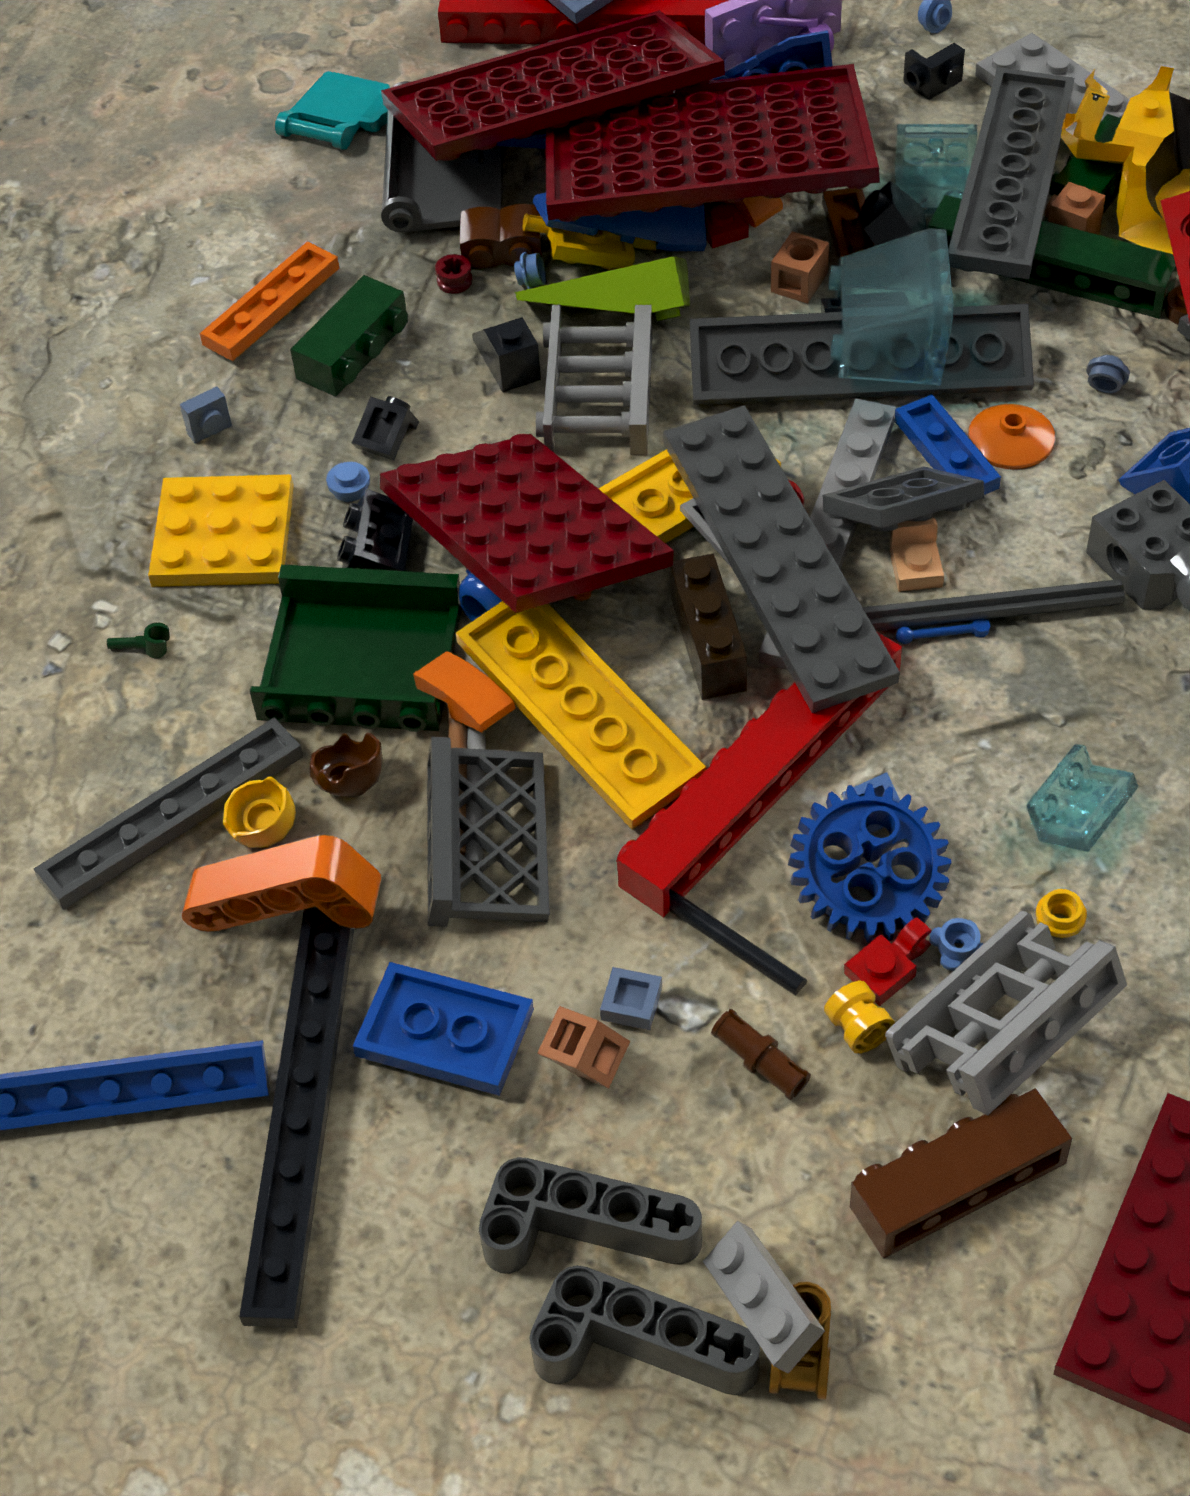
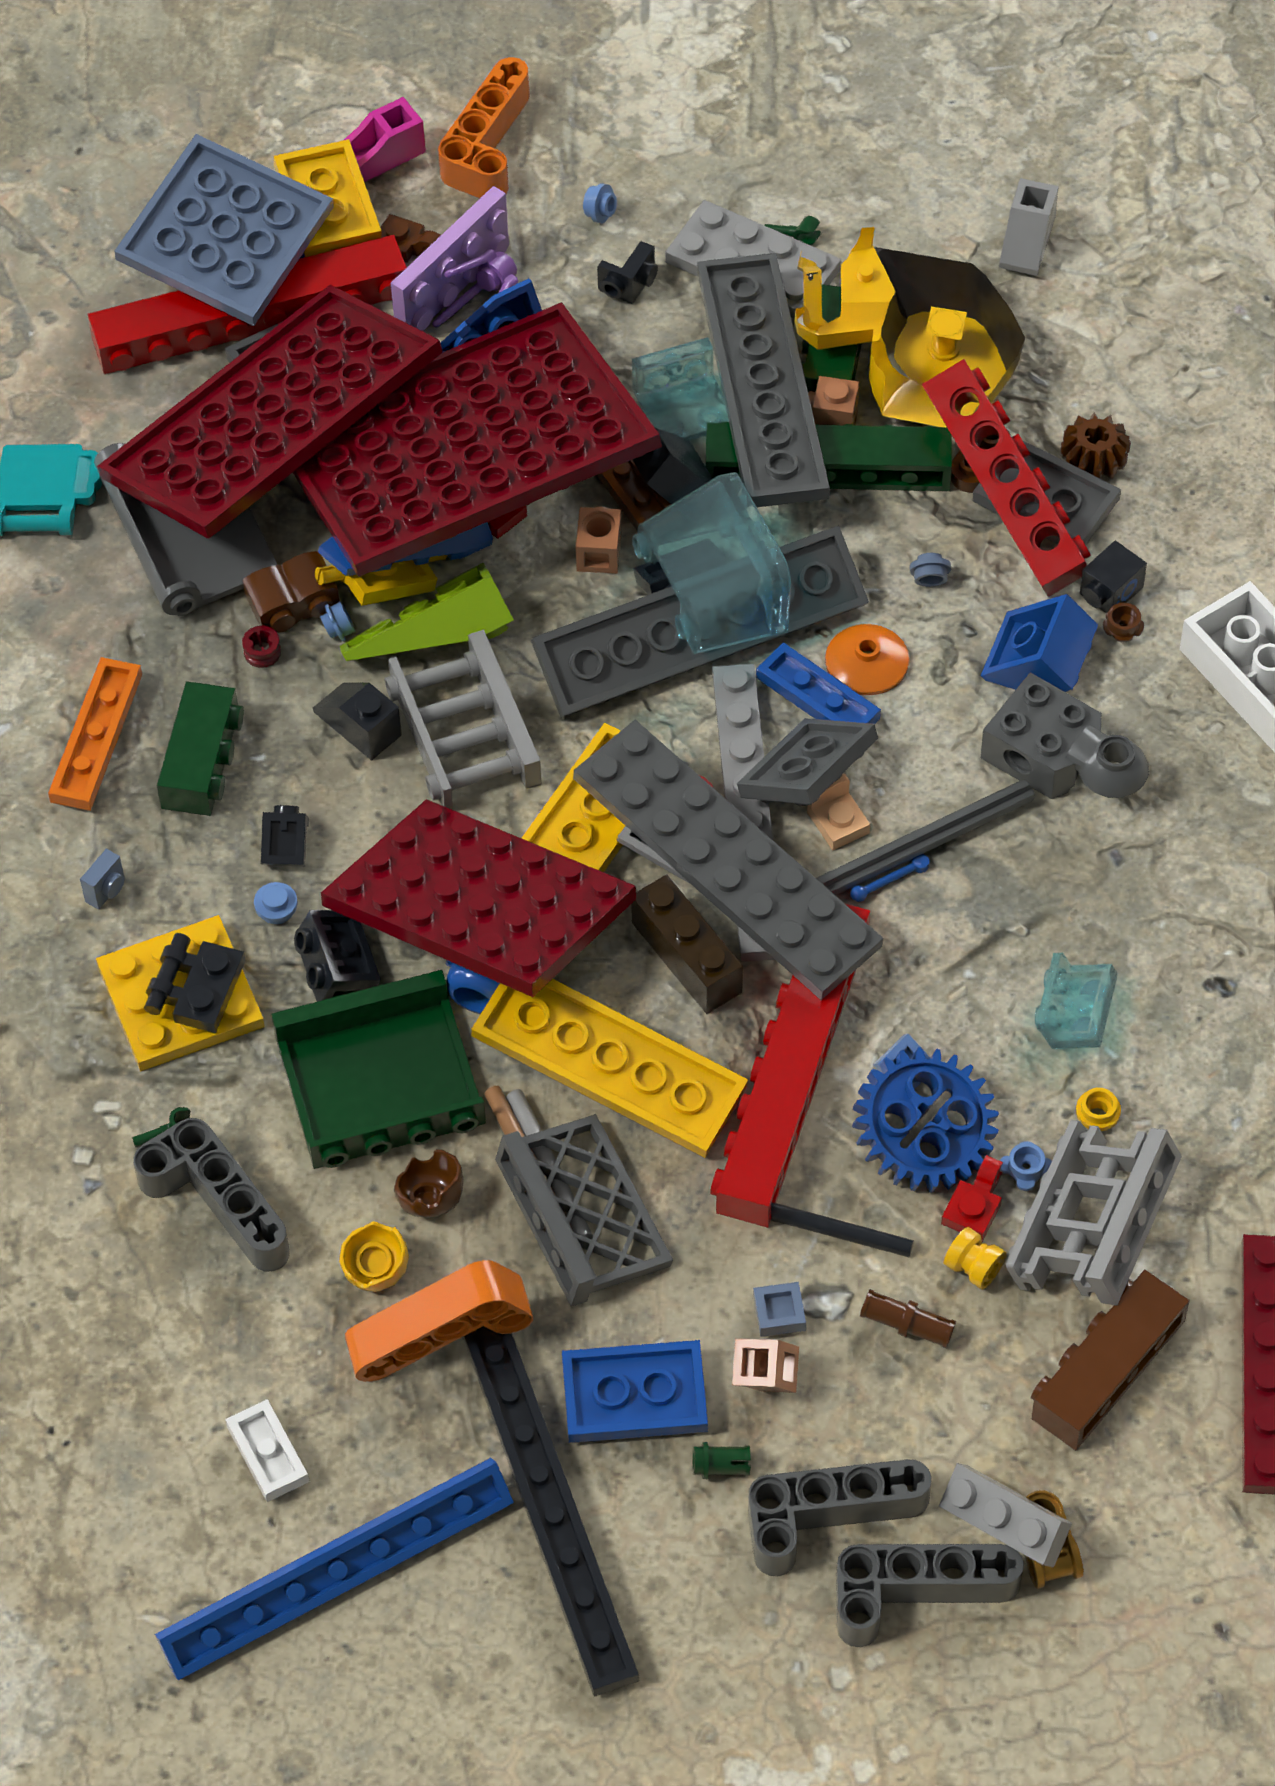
camera: 25 degrees left, 5 degrees up
(61, 959) = (267, 1450): none -> white plate
(146, 669) = (222, 1197): none -> dark grey beam
(166, 814) = (288, 1285): dark grey plate -> none
(238, 528) = (207, 987): none -> black plate
(466, 690) = (507, 1080): orange slope -> none
(495, 1128) = (720, 1460): none -> dark green pin
(1113, 77) = (805, 232): none -> dark green hand

